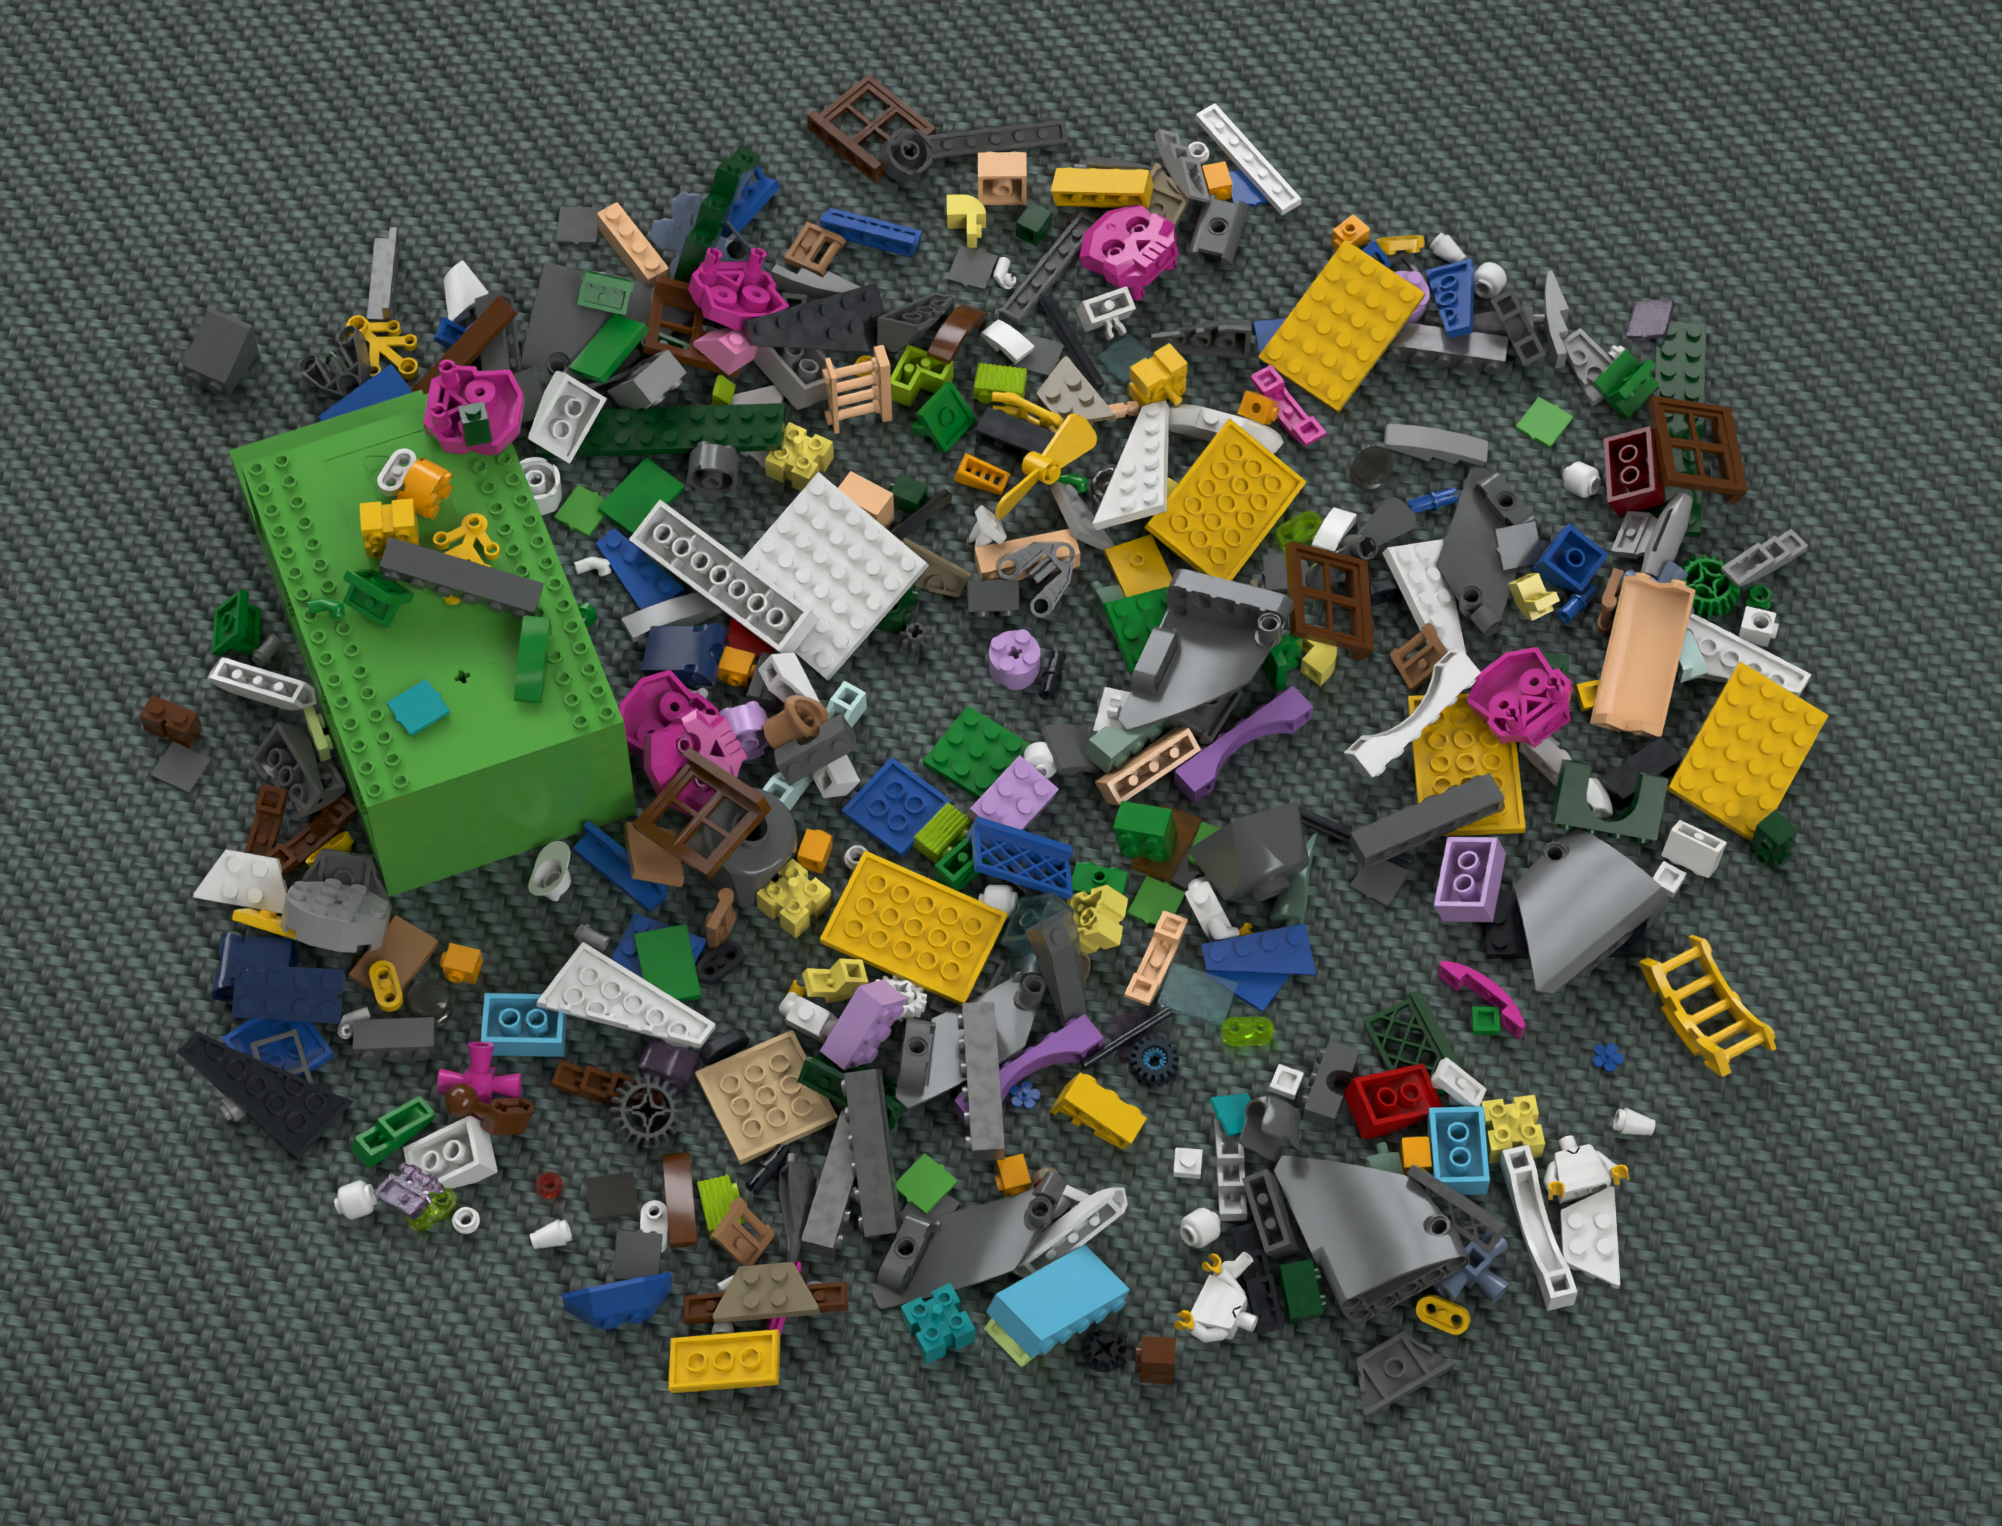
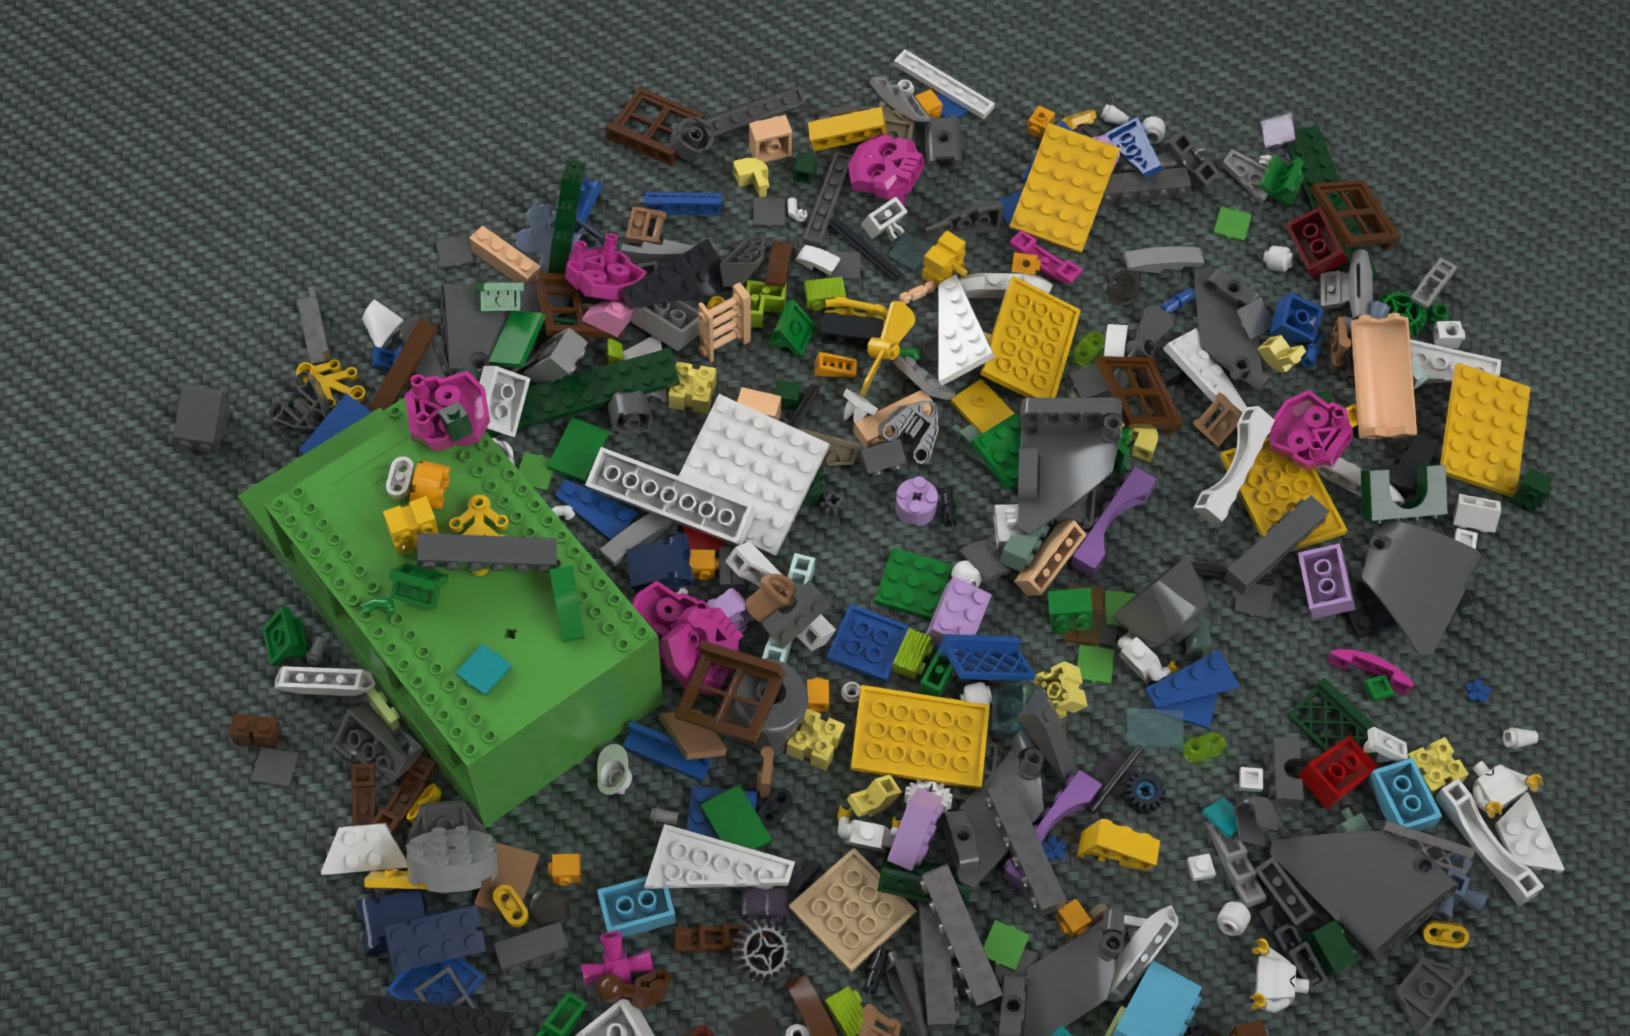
camera: 20 degrees left, 0 degrees up
(345, 1029) = (489, 941): white arm -> none
(1069, 392) = (882, 288): wing -> none
(1090, 876) = (1043, 659): green brick -> none
(1157, 958) = (1114, 709): light nougat slope -> none
(1238, 1266) = (1279, 940): white arm -> none
(1416, 1152) = (1375, 811): light orange brick -> none
(1556, 315) = (1208, 137): light grey slope -> none
(1685, 1025) = (1524, 649): yellow fence -> none

